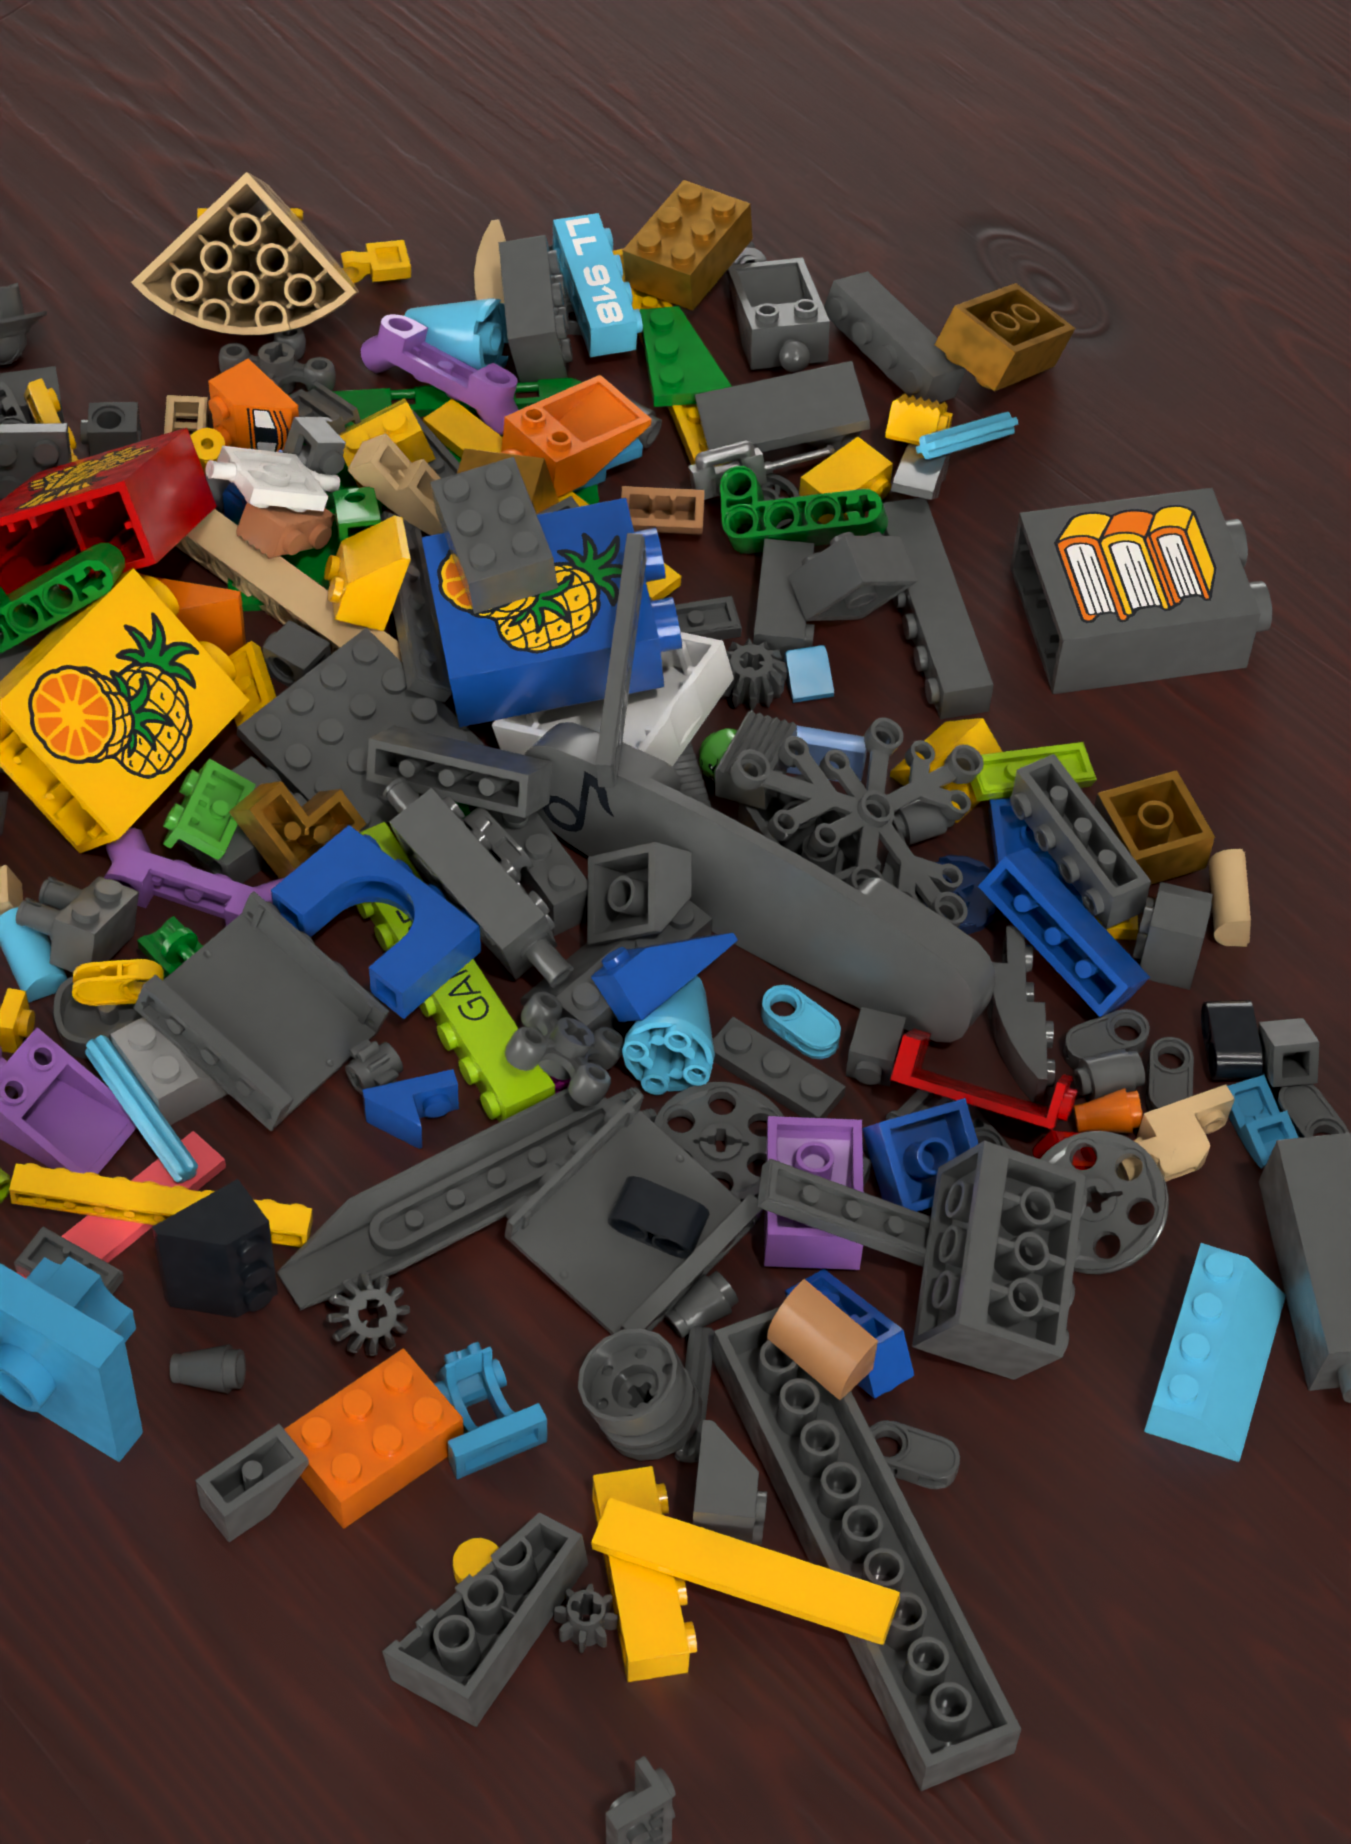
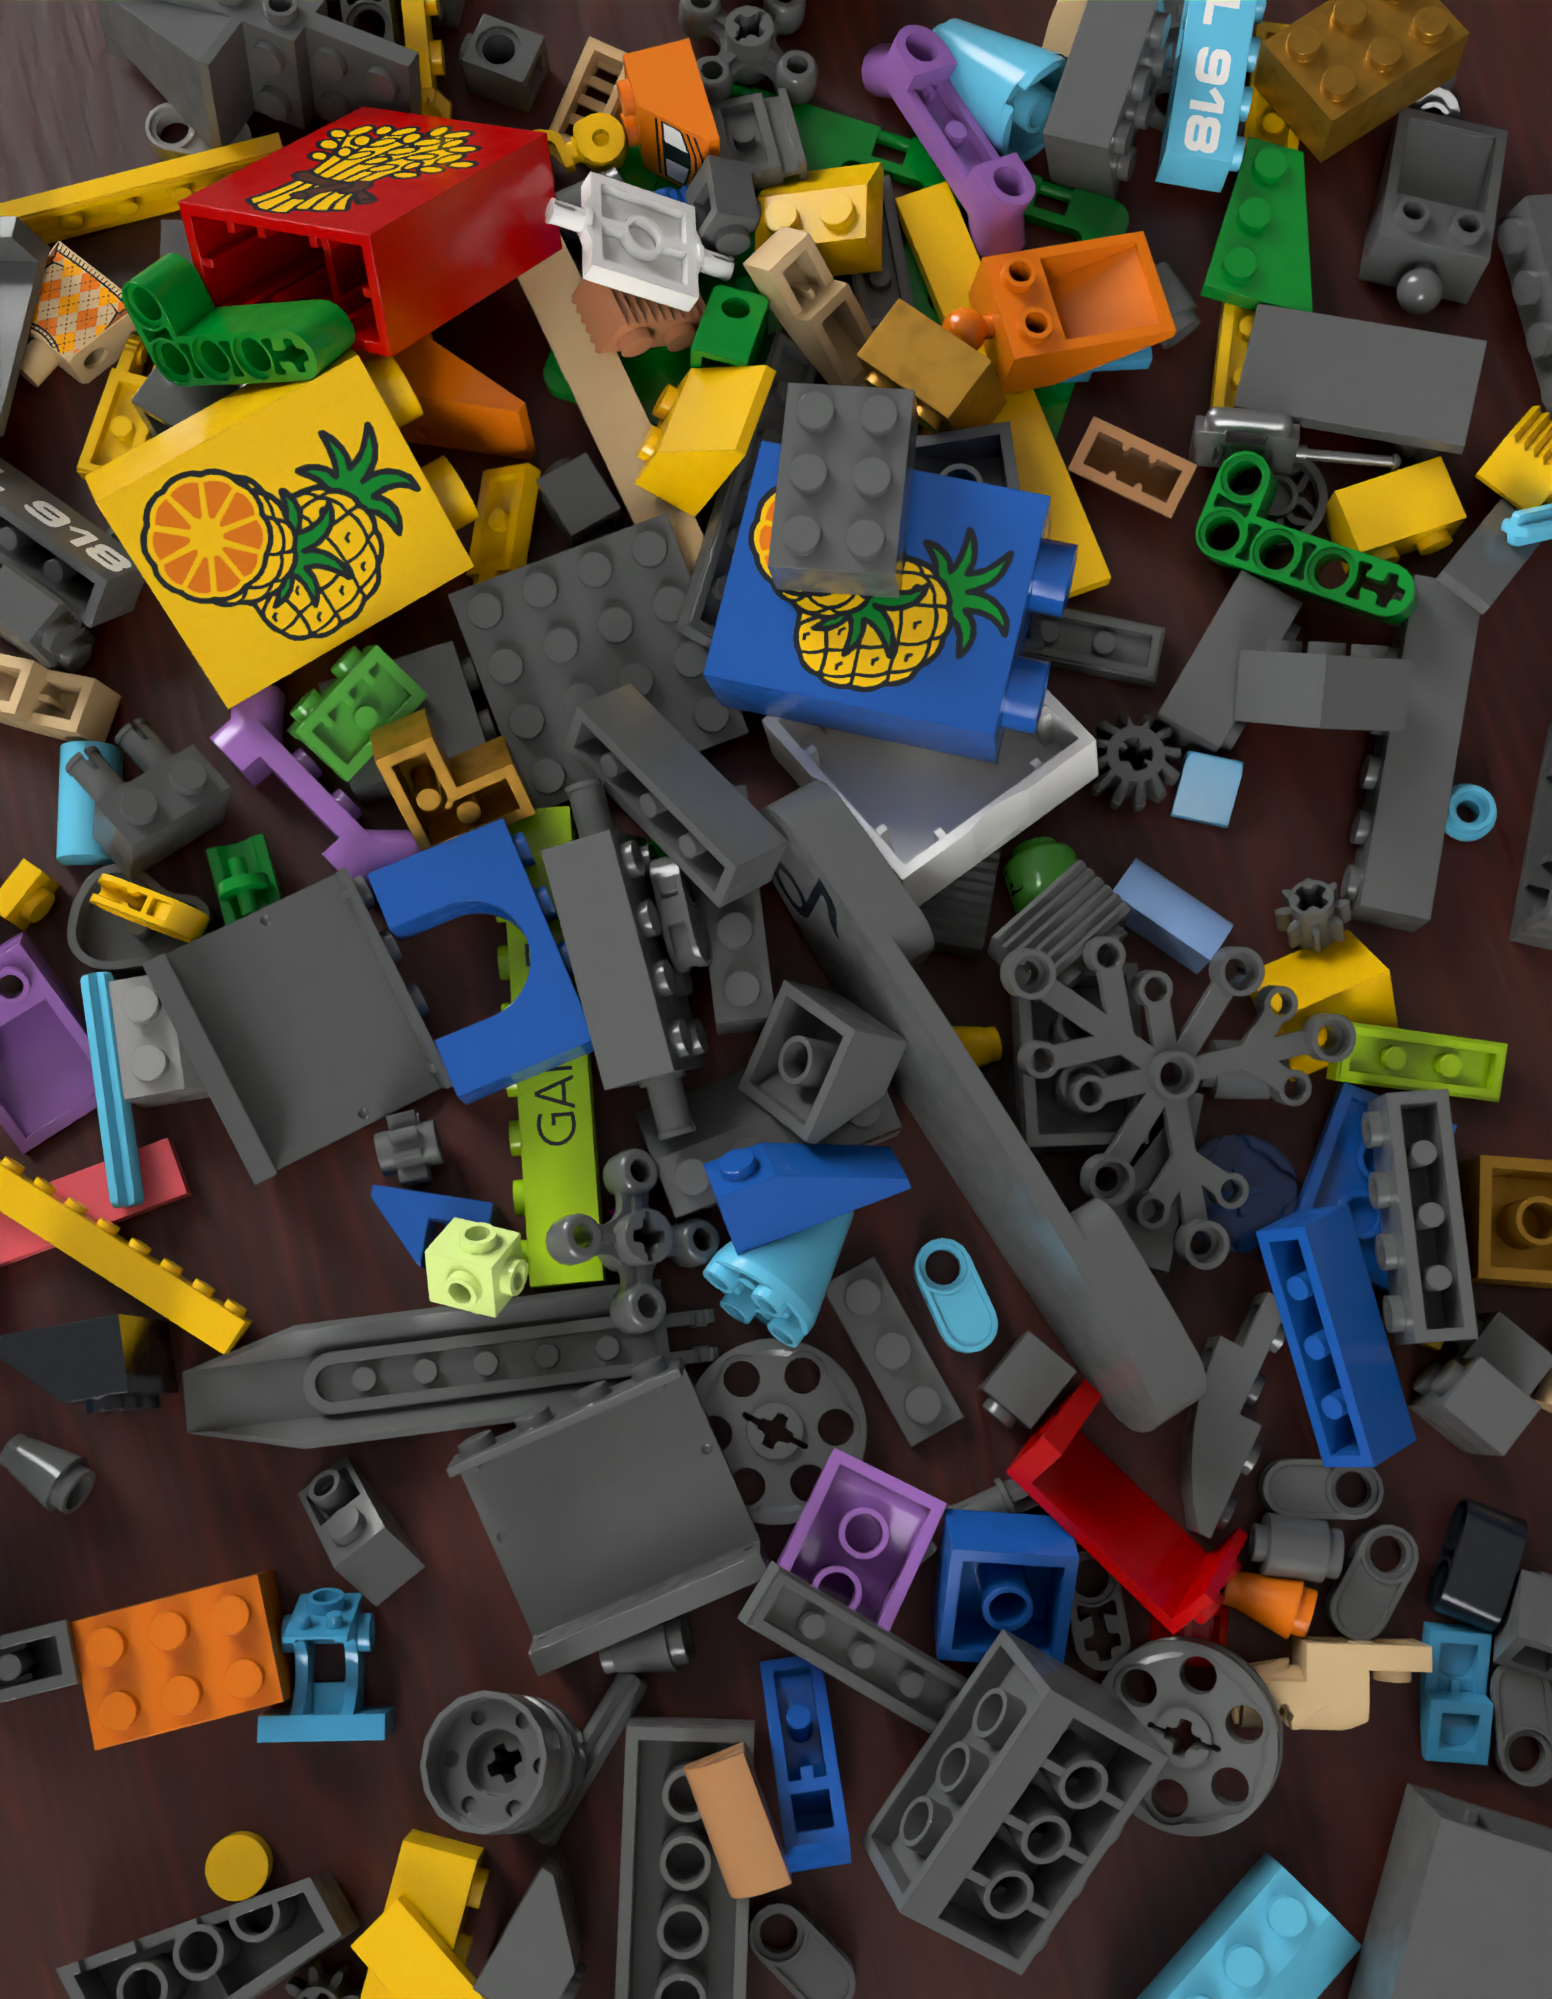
camera: 25 degrees right, 25 degrees up
(357, 1300) = (249, 1492): dark grey gear -> none
(455, 1116) = (475, 1267): none -> yellowish green brick
(461, 1311) = (360, 1531): none -> dark grey slope
(621, 661) = (925, 755): dark grey tile -> none
(658, 1217) = (638, 1527): black beam -> none
(918, 714) = (1313, 915): none -> dark grey gear
(988, 627) = (1482, 807): none -> medium azure plate

